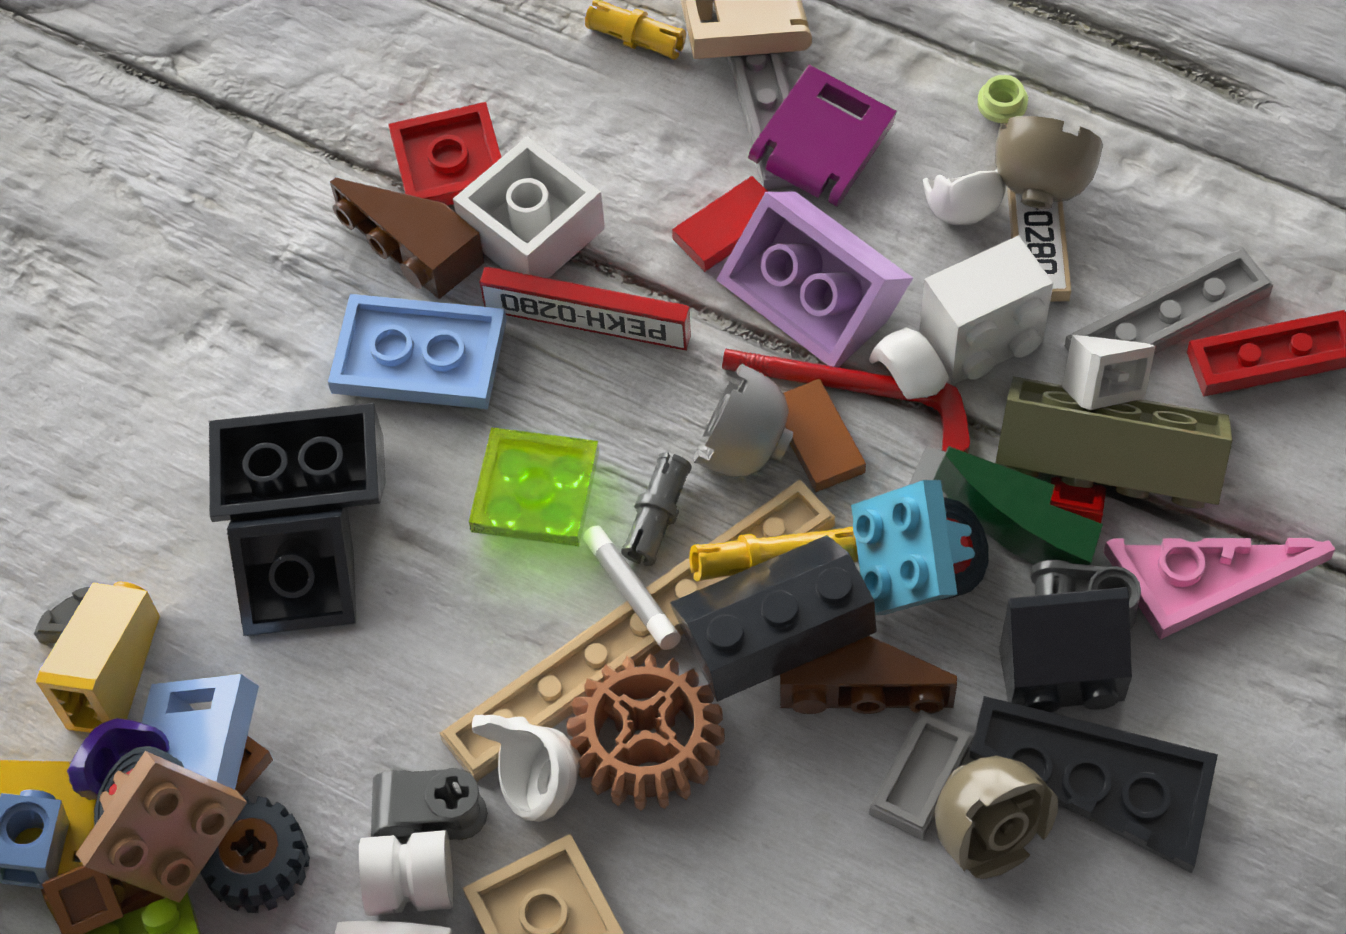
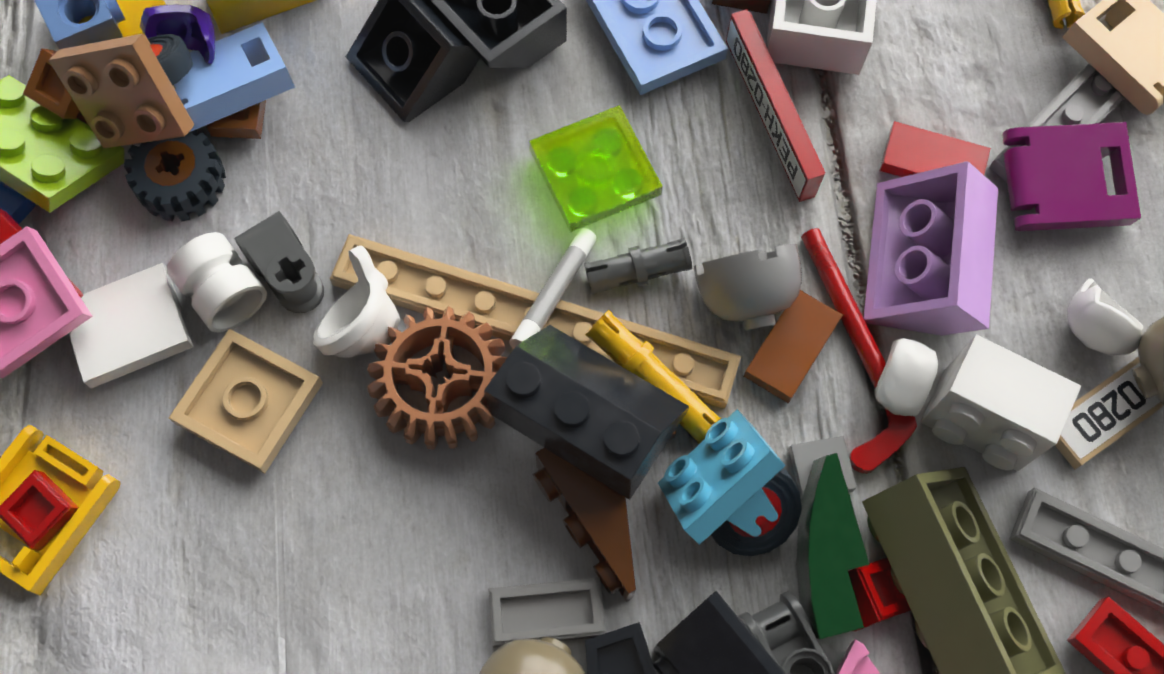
camera: 50 degrees right, 10 degrees up
(1107, 371) = (1020, 543): white slope -> none

